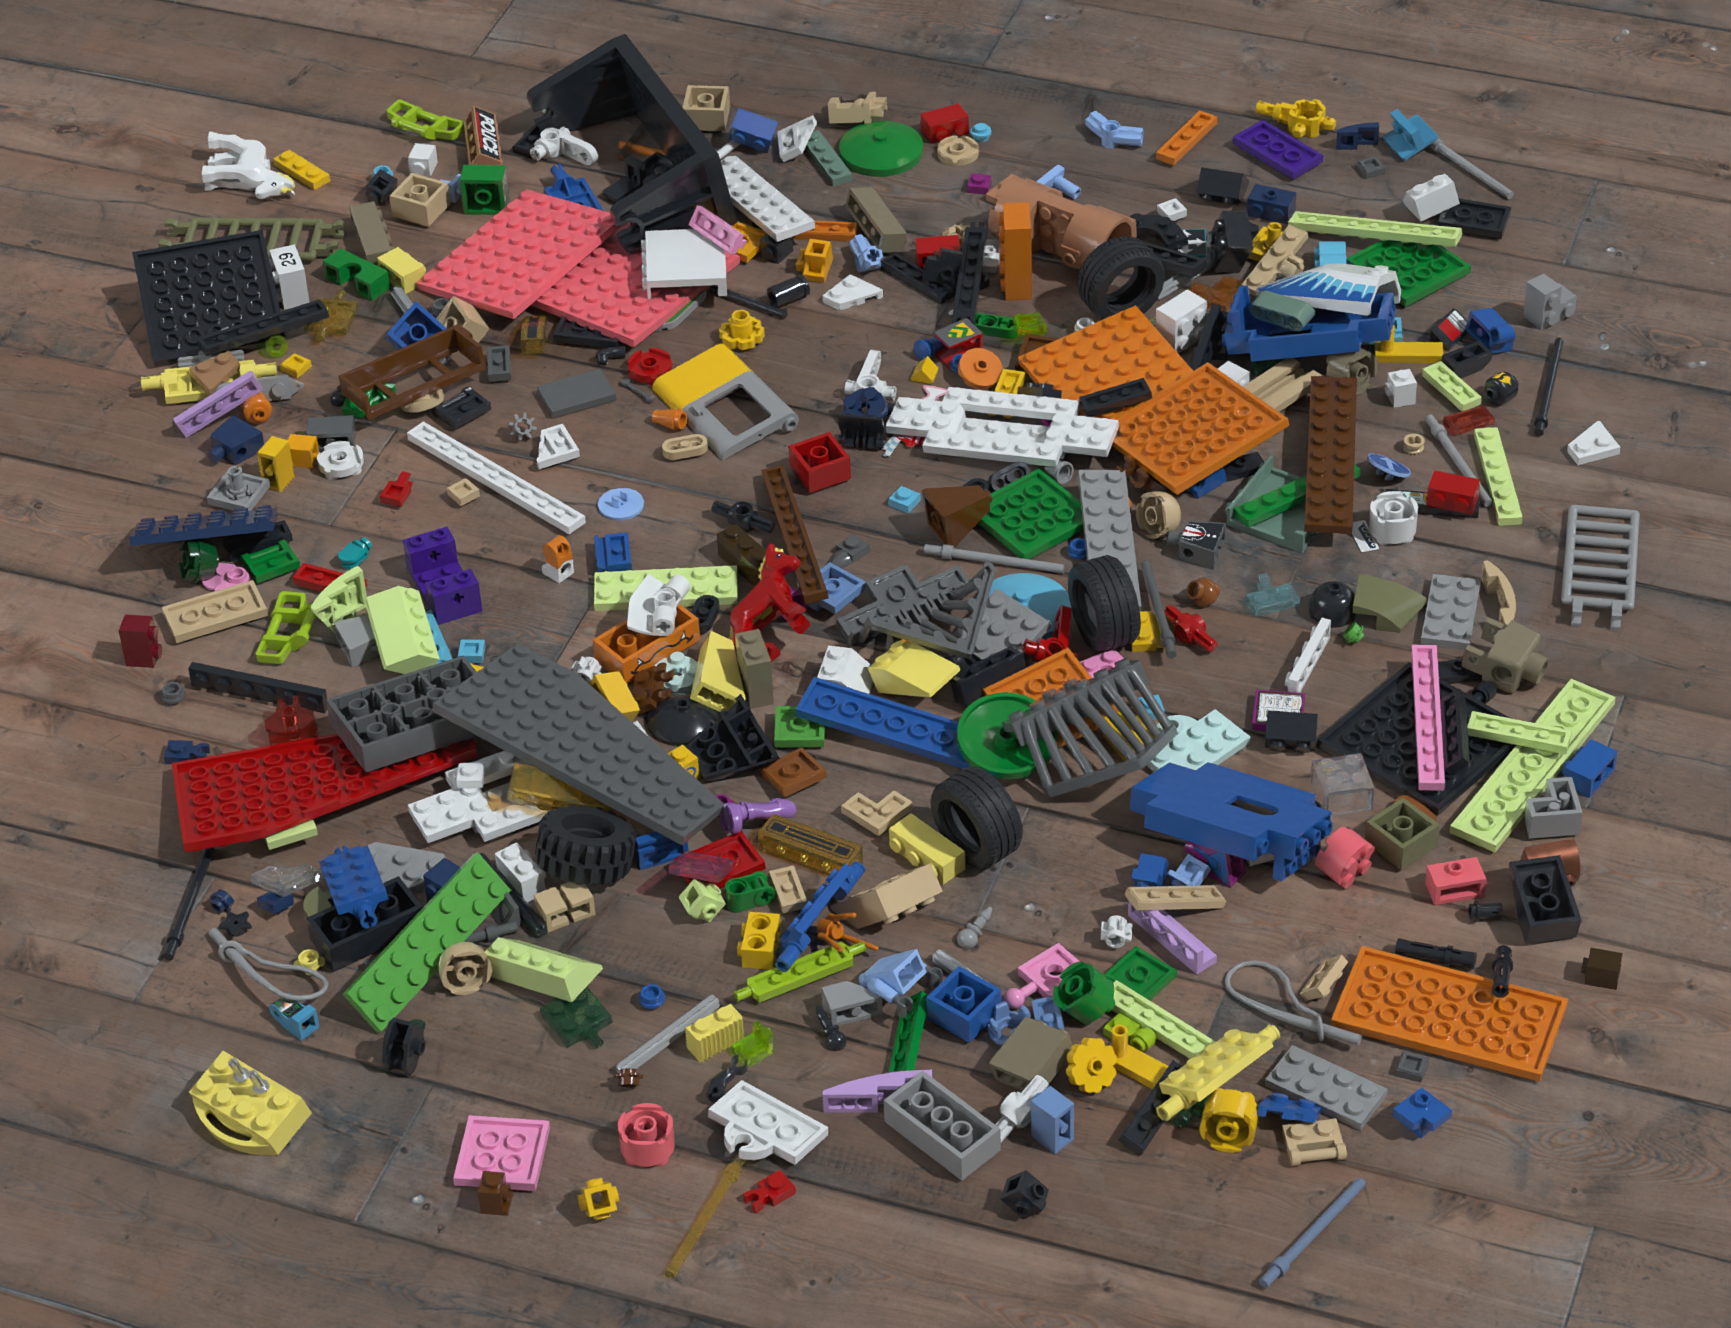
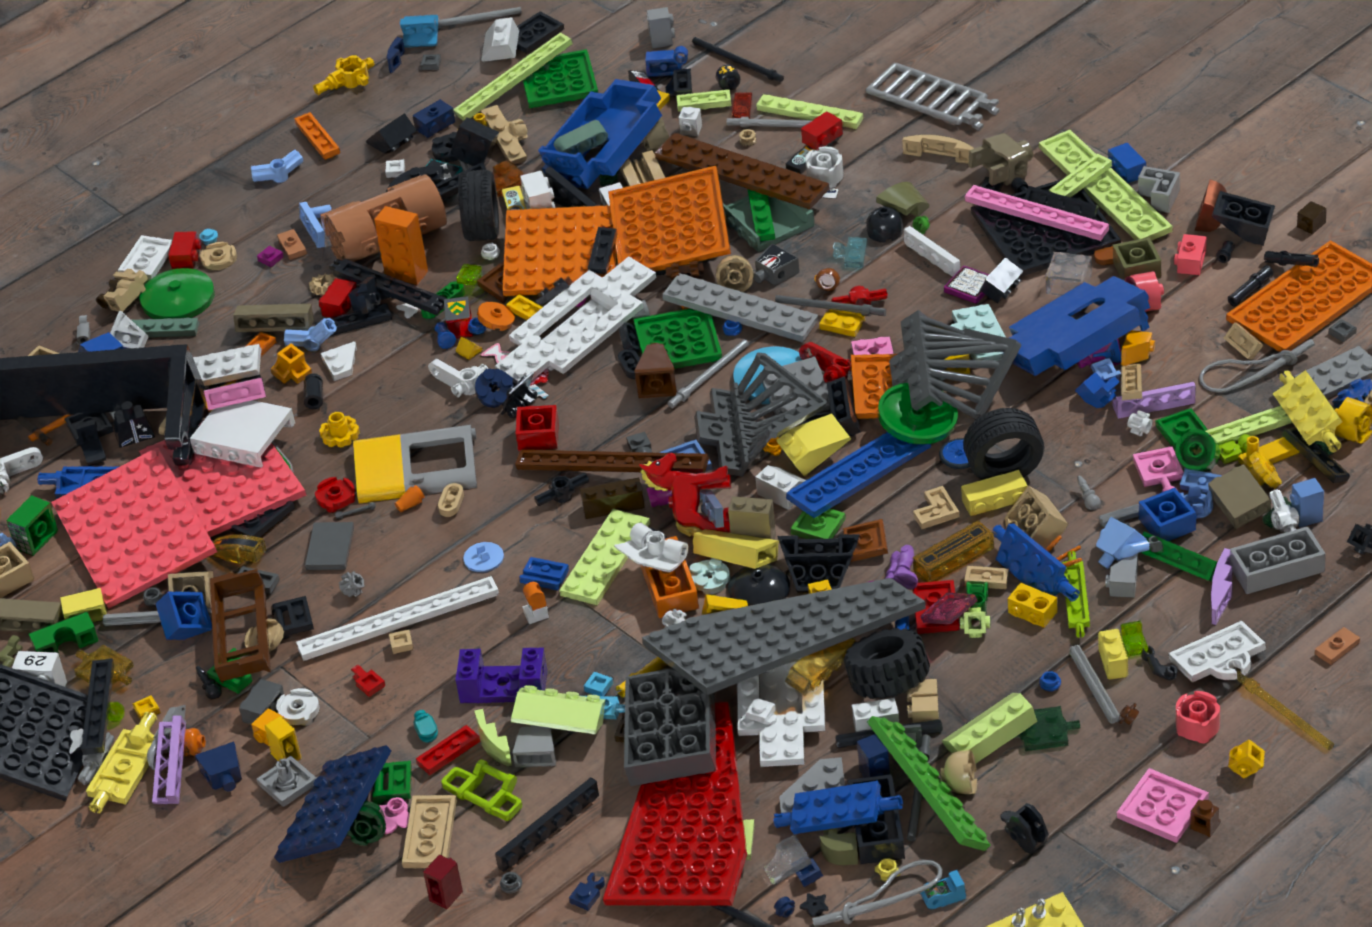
camera: 60 degrees left, 0 degrees up
(215, 371) = (125, 755): medium nougat wing -> none
(291, 723) = (609, 811): clear red hinge -> none
(556, 447) = (389, 573): white wing -> none
(610, 352) = (297, 513): black arm -> none
(649, 687) = (714, 586): reddish brown plate -> none
(751, 302) = (311, 414): black bar -> none
(766, 625) = (712, 508): none -> sand blue plate
(770, 1189) = (1280, 669): red plate -> none
(788, 110) = (83, 330): none -> light grey bar
(834, 1039) = (1149, 597): black bar -> none
(840, 1230) = (1337, 645): none -> nougat plate
(904, 499) = (605, 400): medium azure plate -> none
(908, 105) = (147, 255): none -> white plate
(1104, 603) = (832, 298): black tyre -> none
(1245, 883) = (1137, 347): none -> light orange slope
(1277, 149) = (372, 97): dark purple plate -> none
(1330, 253) = (521, 108): medium azure brick -> none
(1338, 287) = (574, 107): windscreen -> none
(1388, 465) = (765, 153): piece -> none
(1450, 612) = (929, 176): light grey plate -> none
(1593, 445) = (811, 60): white wing -> none

